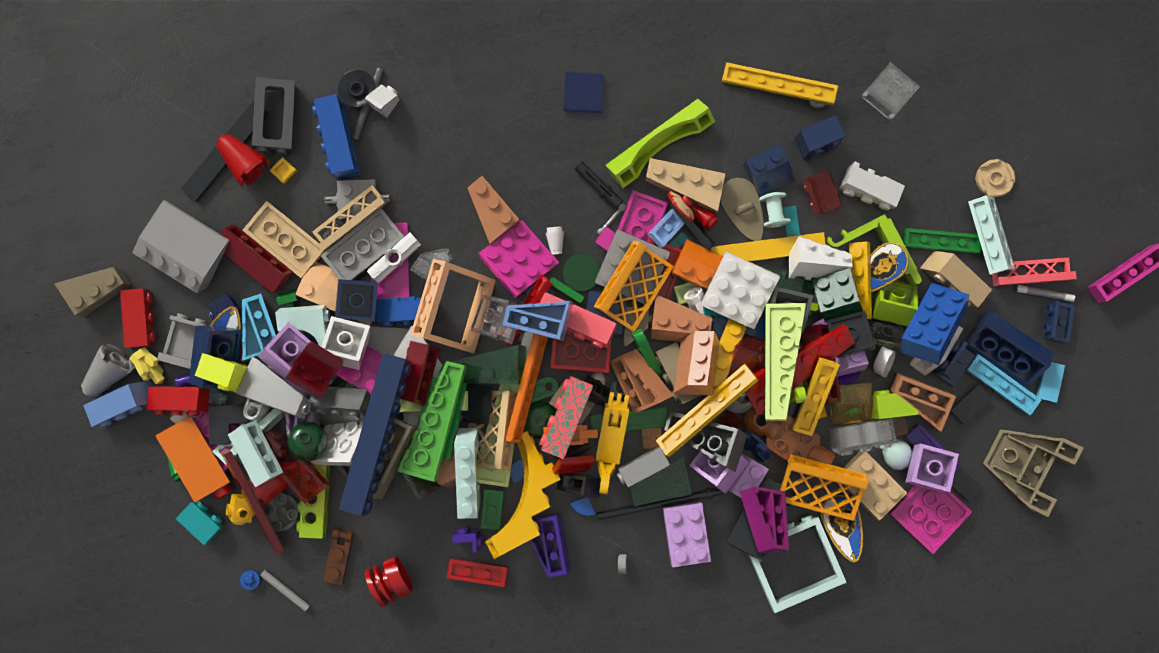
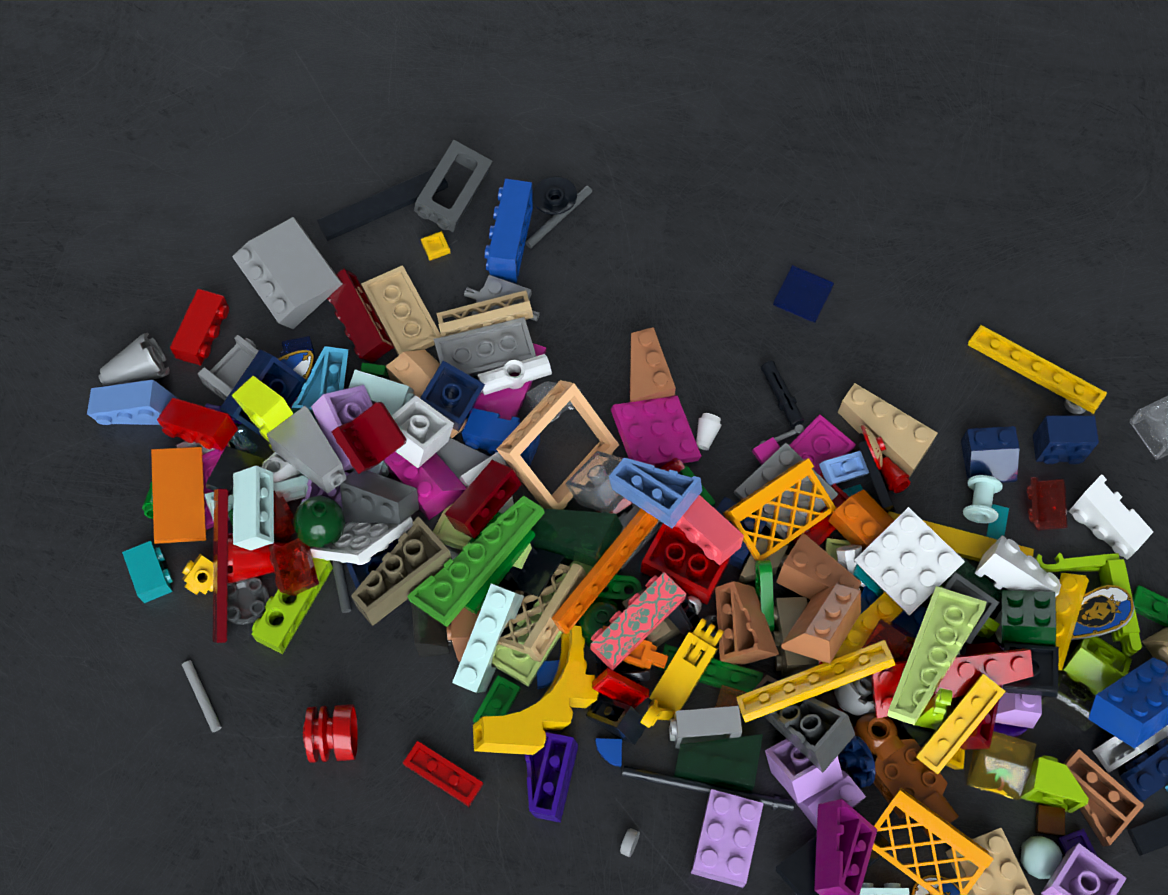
camera: 20 degrees right, 20 degrees down
(92, 290) = (168, 278): dark tan wedge -> none
(147, 366) = (183, 378): light yellow rock -> none
(222, 492) = (191, 548): red tile -> none
(241, 159) = (398, 214): red cone -> none
(250, 579) = (168, 665): blue tile -> none
(338, 556) = (285, 682): reddish brown plate -> none
(375, 435) = (401, 539): dark blue brick -> none
(383, 100) = (577, 216): white slope -> none
(464, 534) = (451, 718): dark purple bracket -> none
(580, 272) = (722, 477): dark green tile -> none
(688, 121) = (908, 366): lime arch -> none
(743, 207) = (944, 485): dark tan shield -> none
(862, 436) = (1002, 807): clear brick -> none
(884, 361) = (1061, 730): white hat -> none

